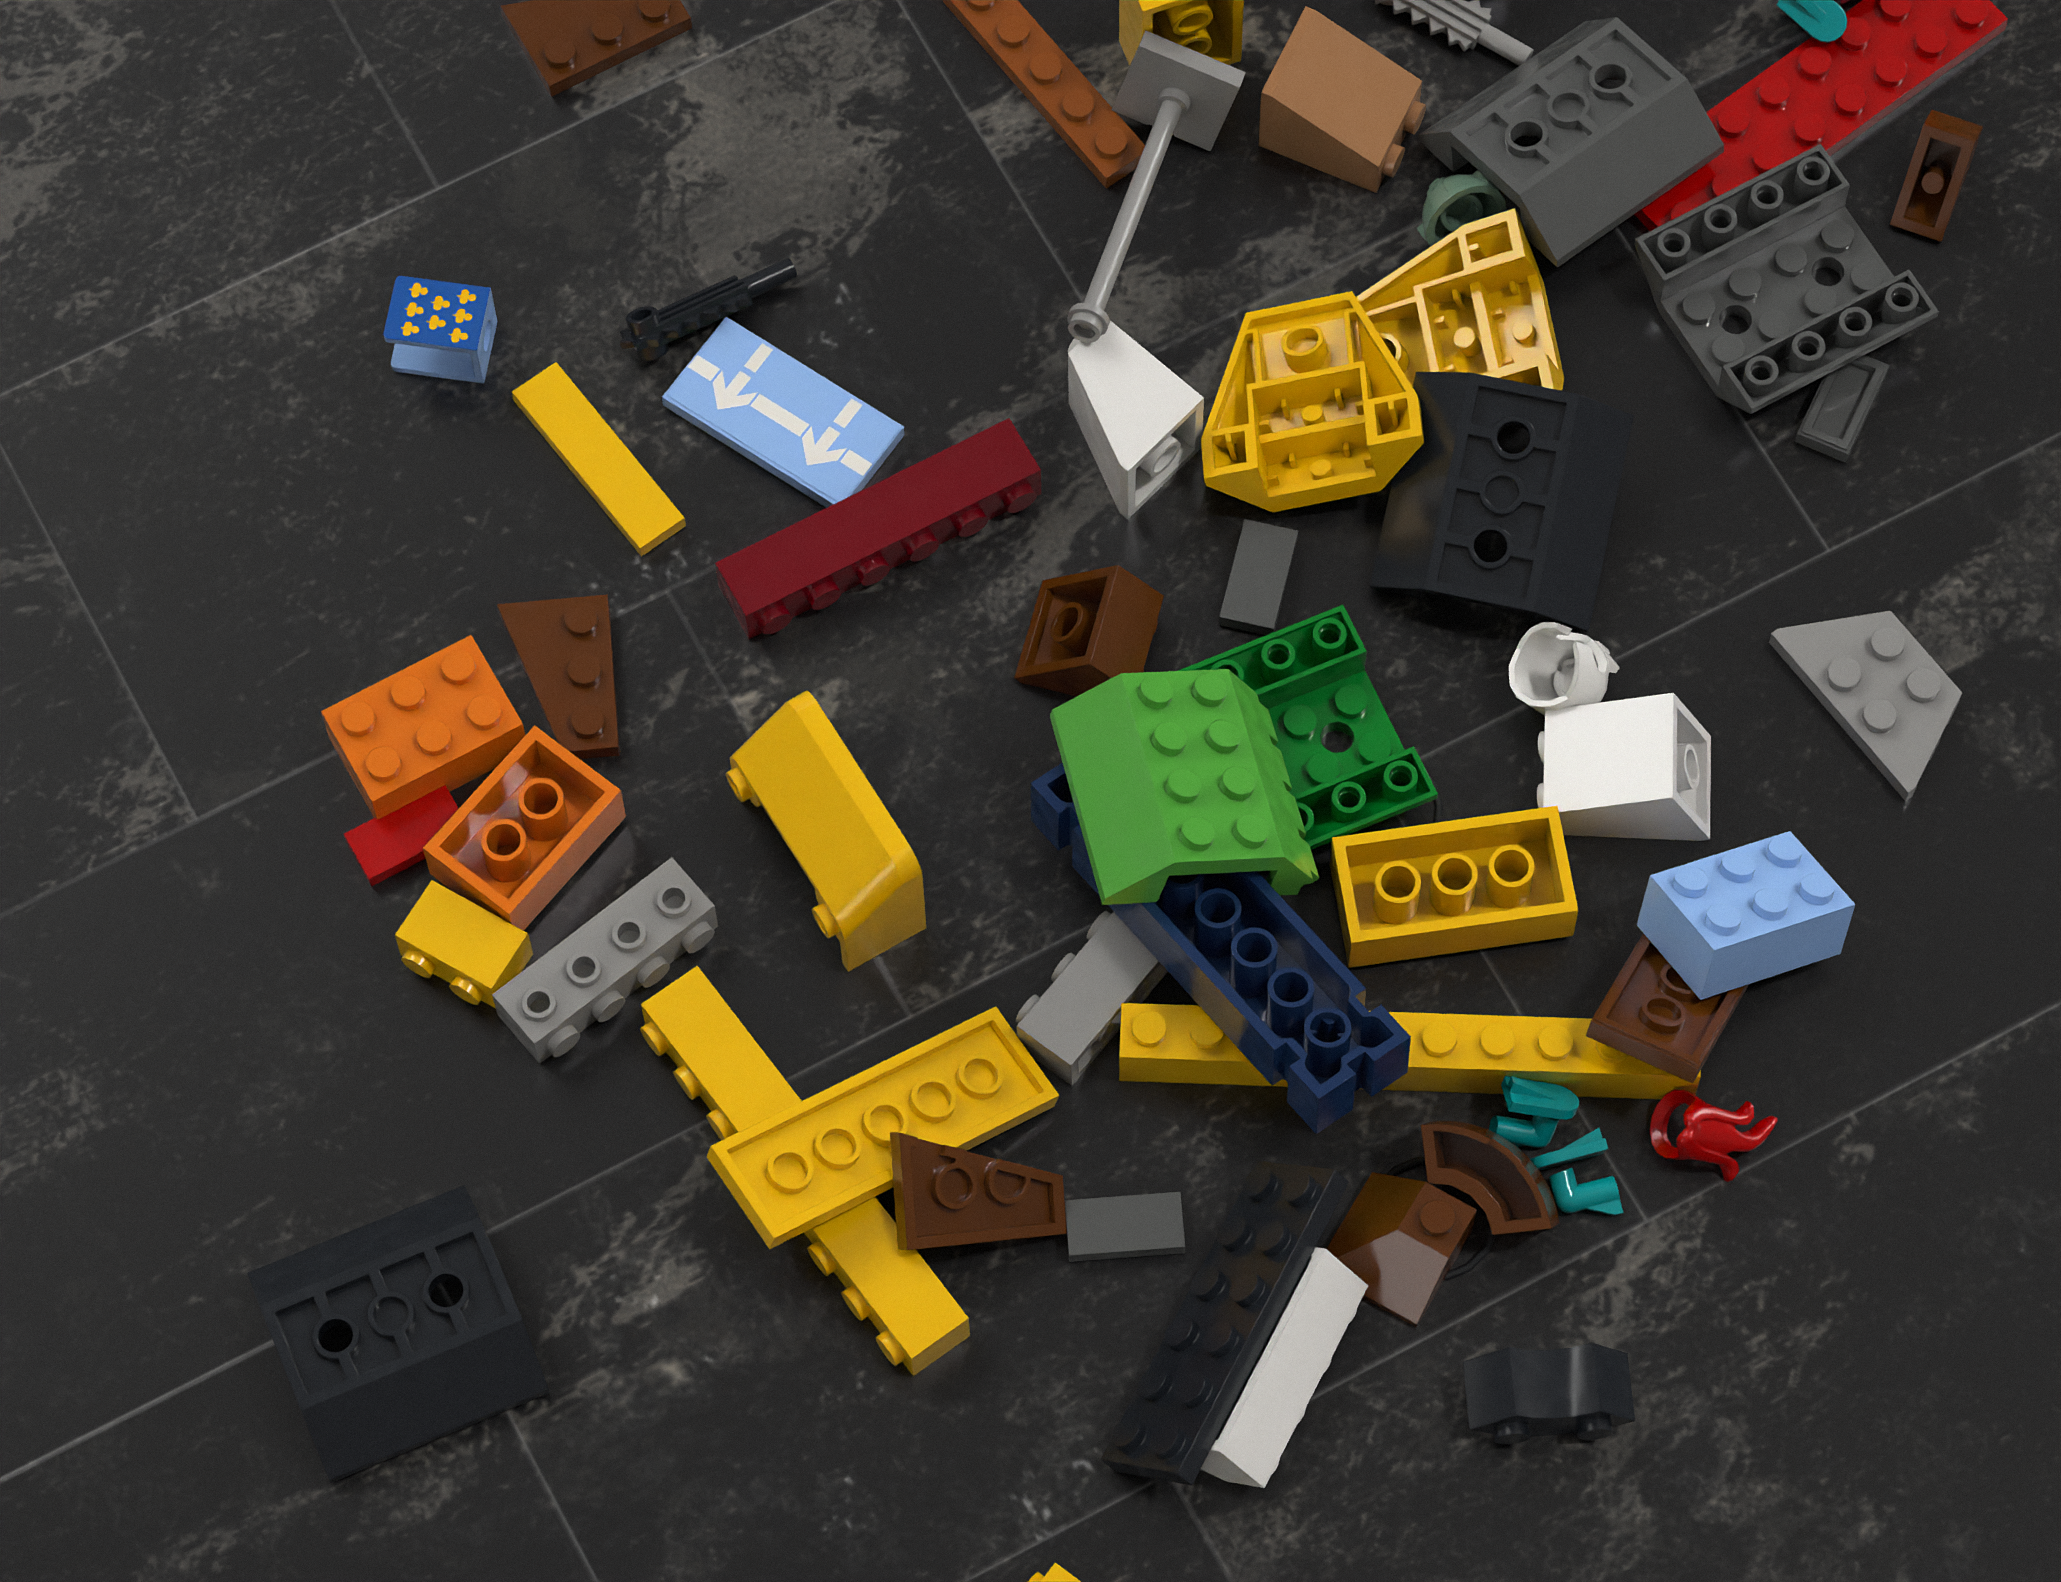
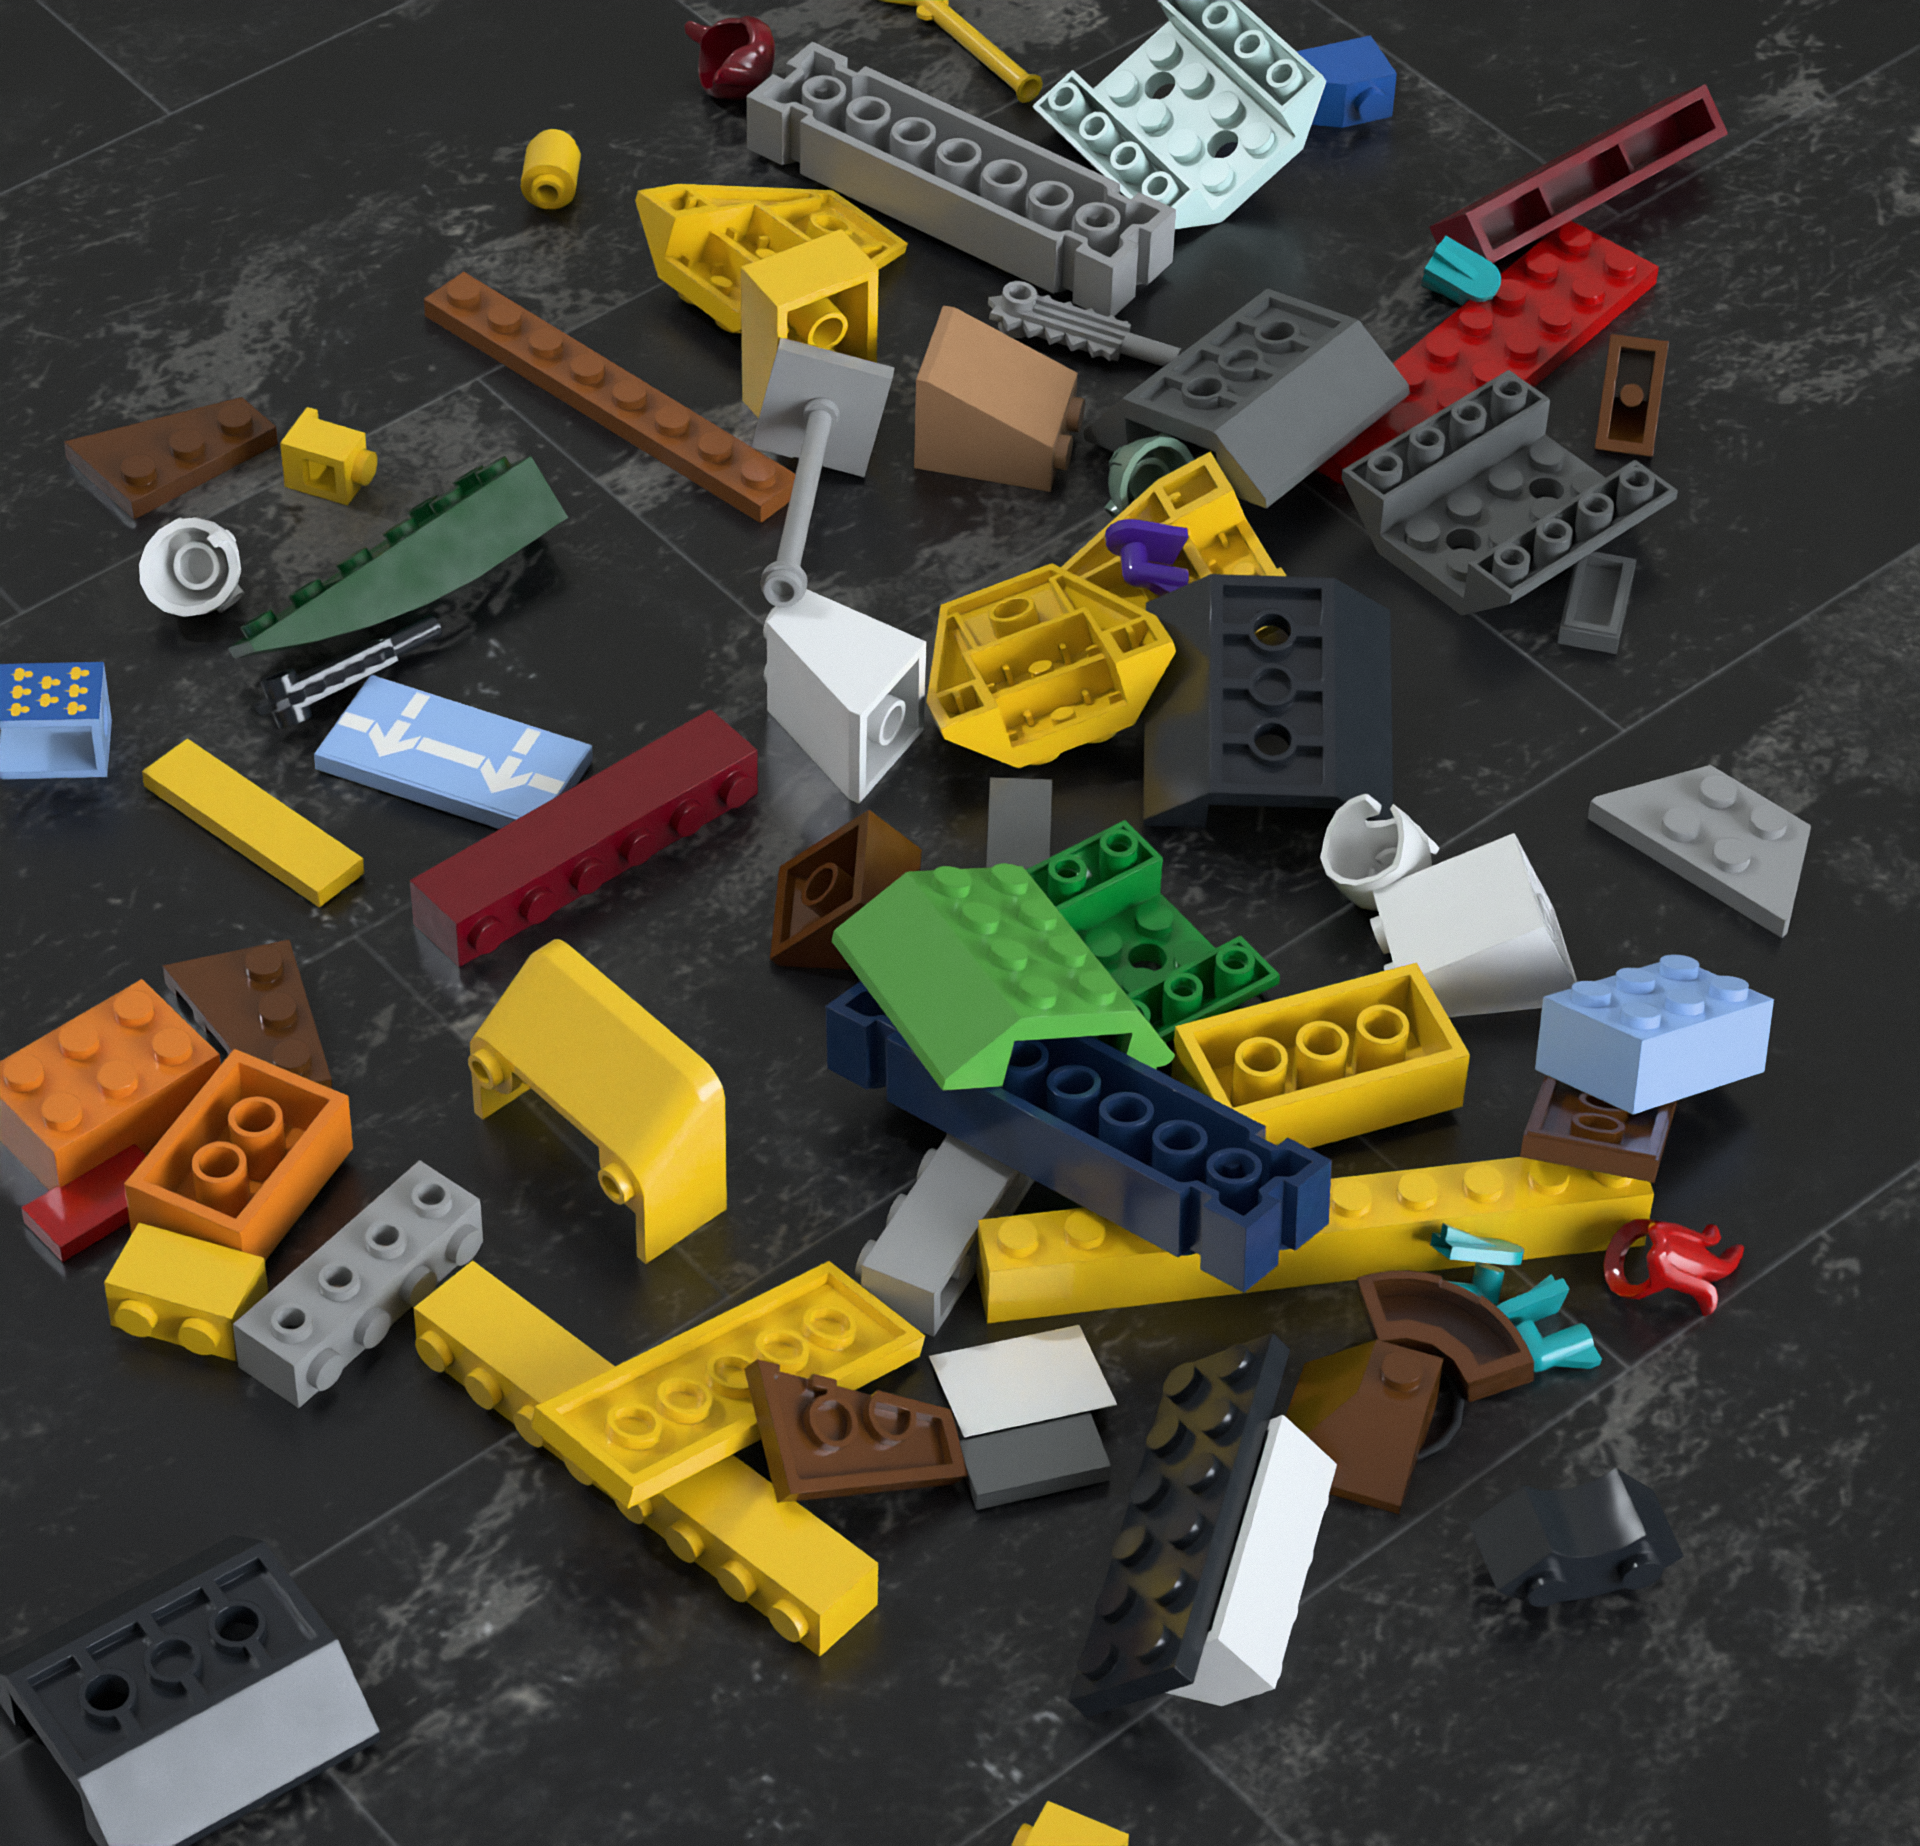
camera: 15 degrees left, 20 degrees down
(585, 180) = (191, 568): none -> white helmet
(728, 64) = (326, 459): none -> yellow brick
(782, 202) = (420, 560): none -> dark green wedge
(1132, 1147) = (1022, 1380): none -> white sticker
(1440, 337) = (1148, 541): none -> dark purple piece

